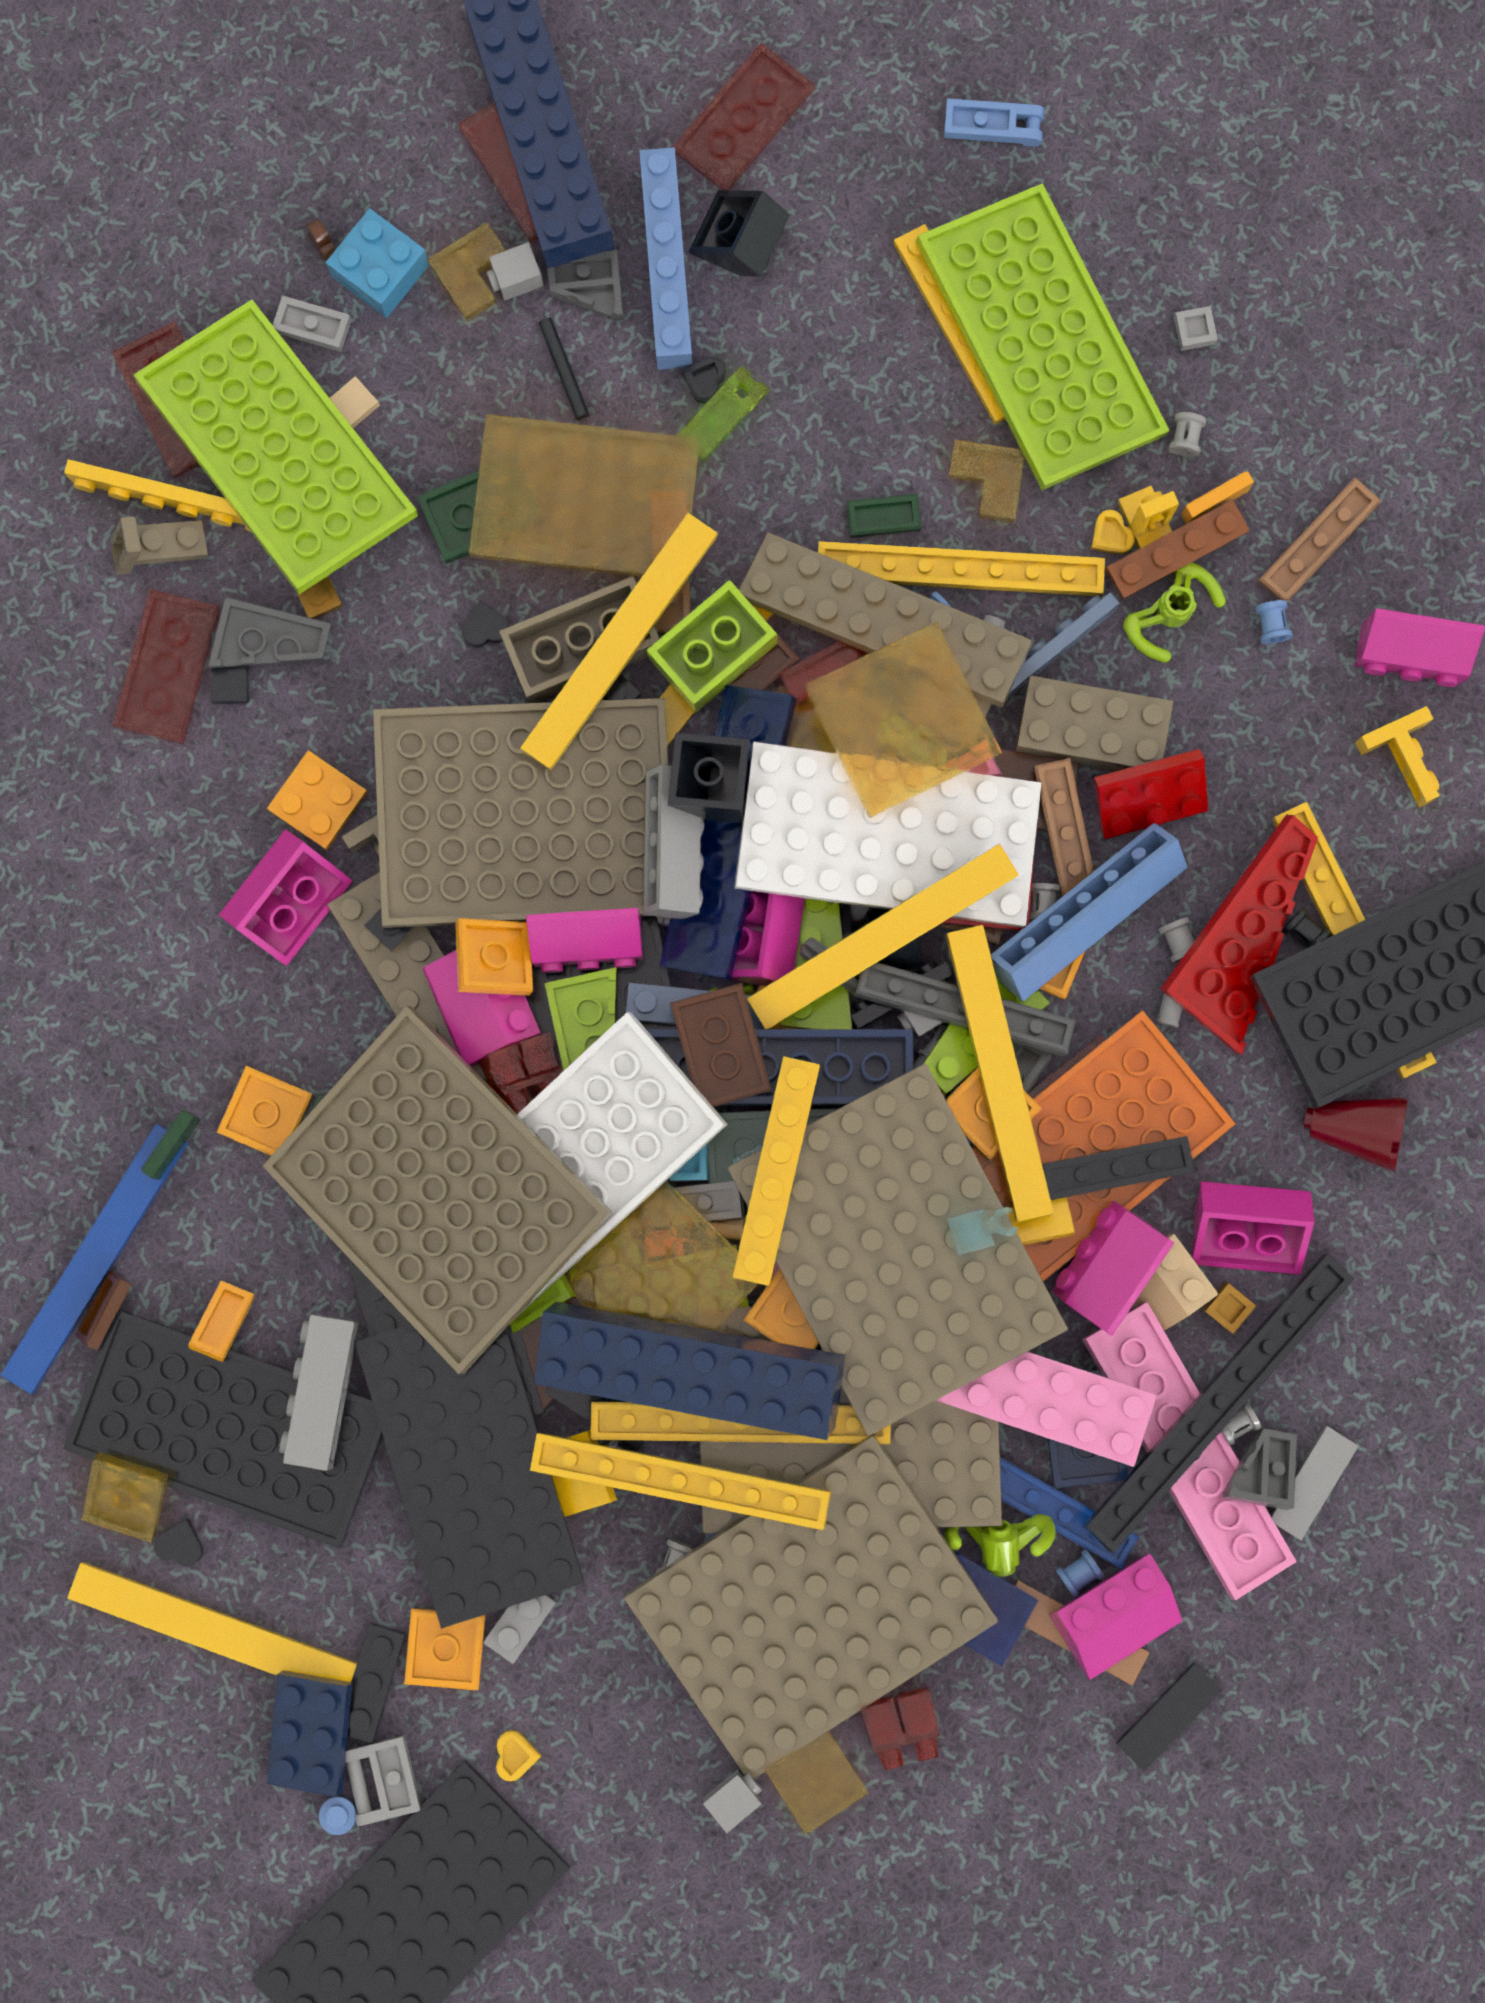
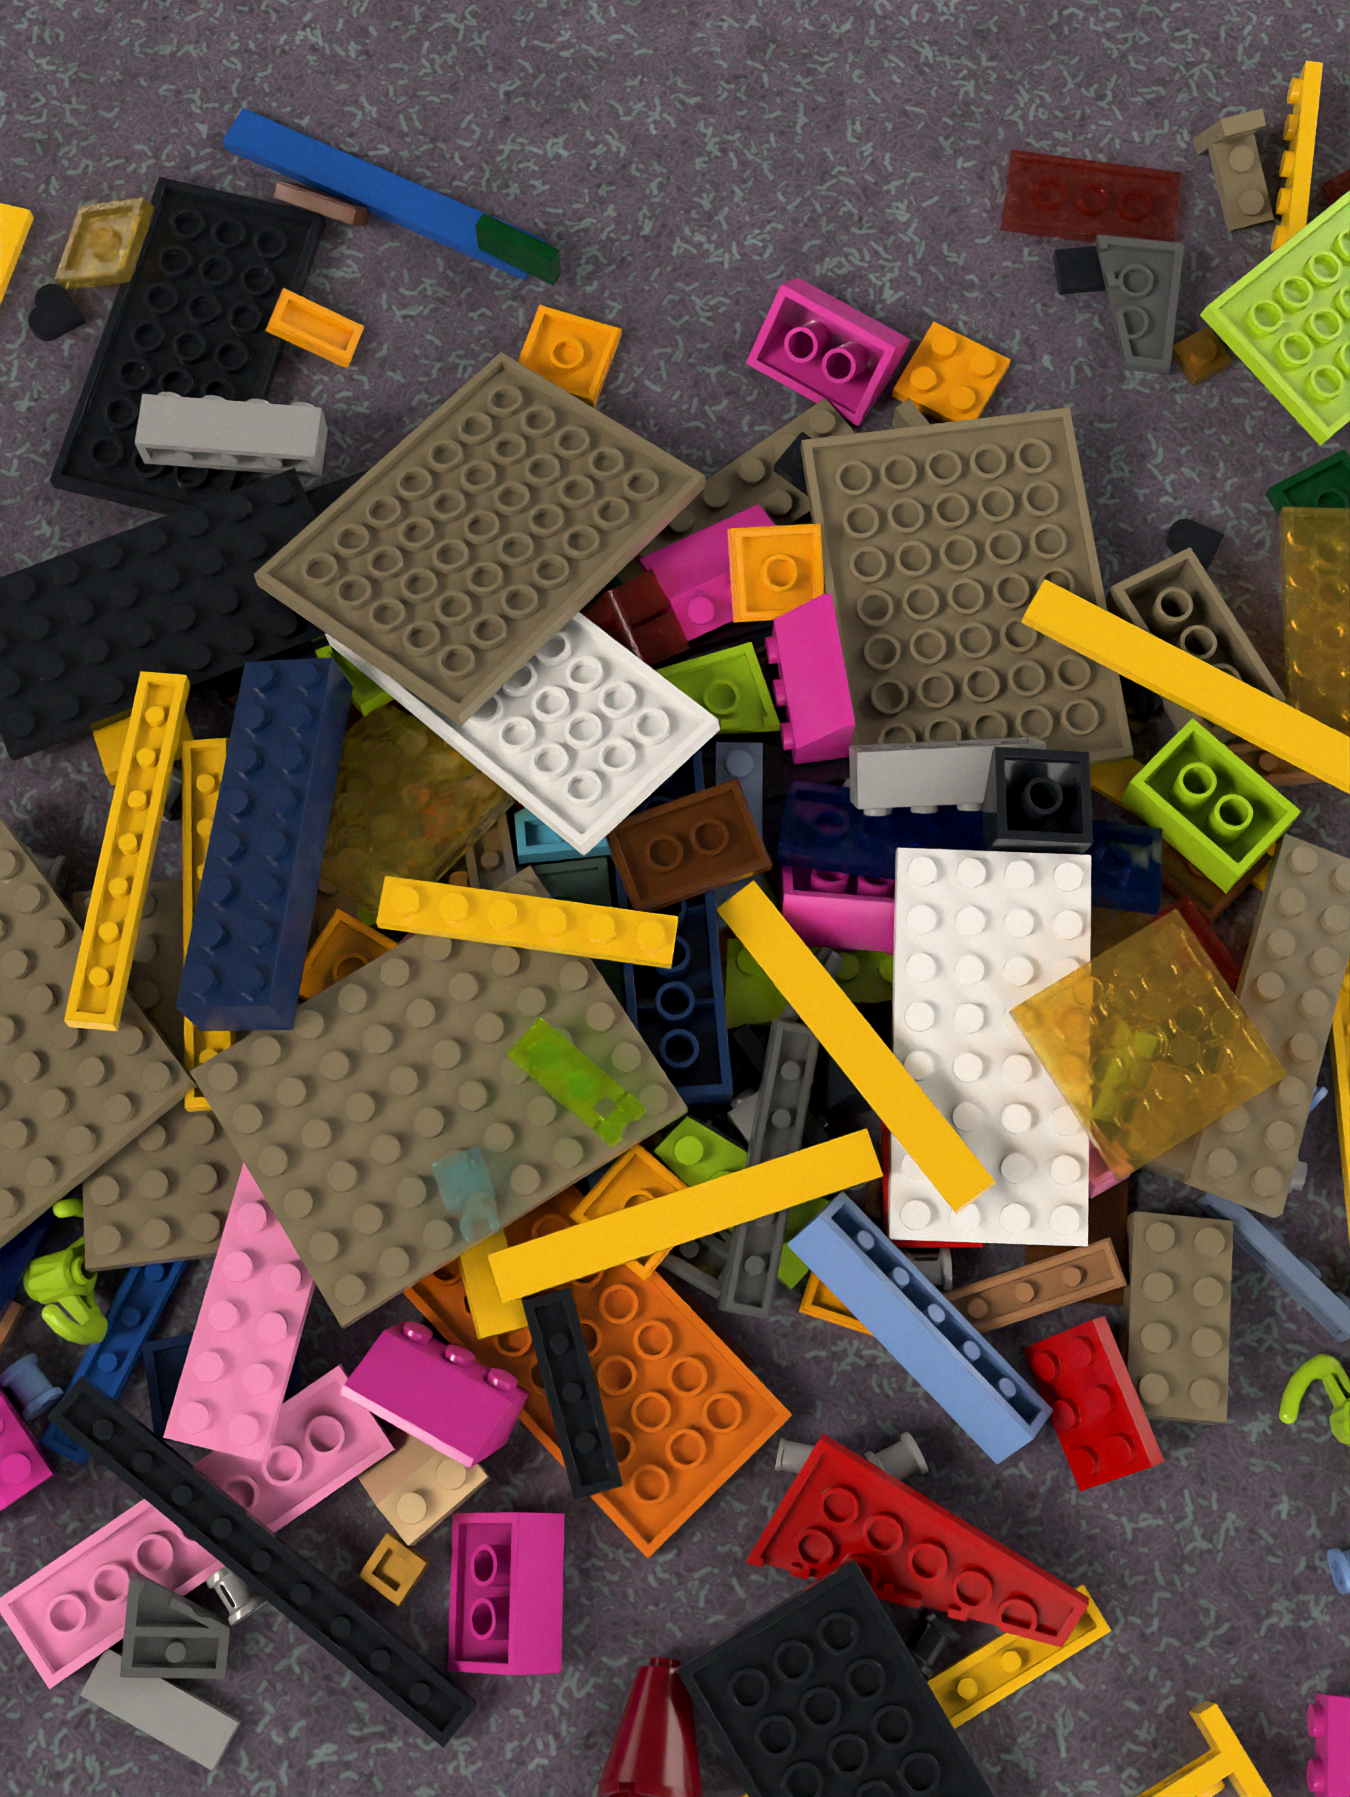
camera: 80 degrees right, 10 degrees down
(903, 1144) = (574, 1081): none -> clear neon green plate

